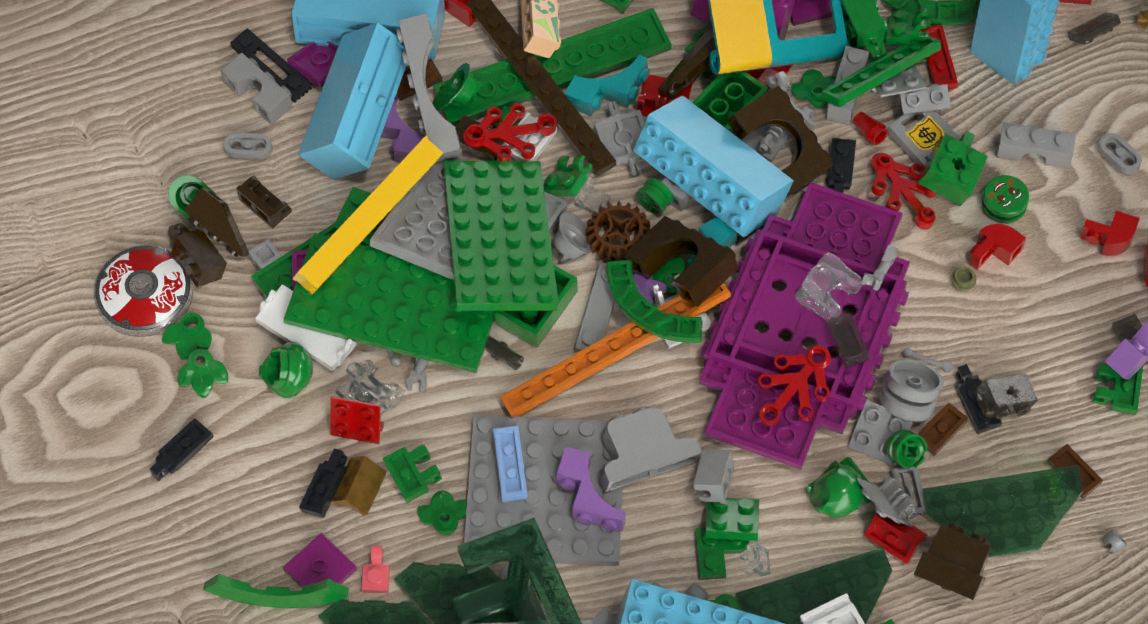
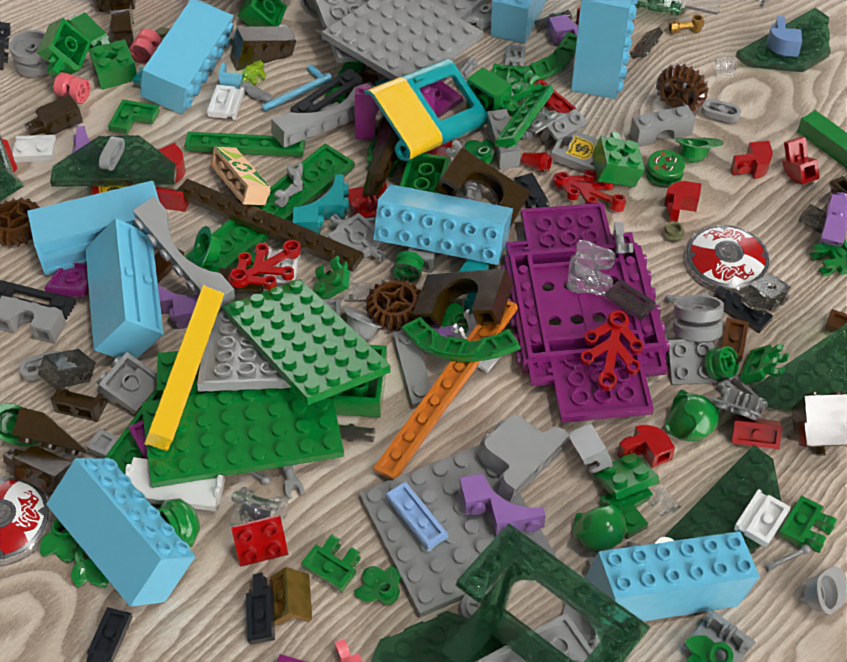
camera: 30 degrees left, 10 degrees down
(235, 352) = (120, 531): none -> medium azure brick
(266, 162) = (66, 368): none -> clear smoke brick
(316, 201) = (128, 382): none -> light grey plate
(599, 35) = (296, 175): none -> light grey piece
(674, 556) = (600, 527): none -> green helmet
(779, 494) = (650, 442): none -> red brick
(945, 467) = (762, 363): none -> green plate
(1000, 335) = (726, 258): none -> dish
(1056, 189) = (696, 149): none -> green piece
(1083, 109) = (677, 87): none -> reddish brown gear

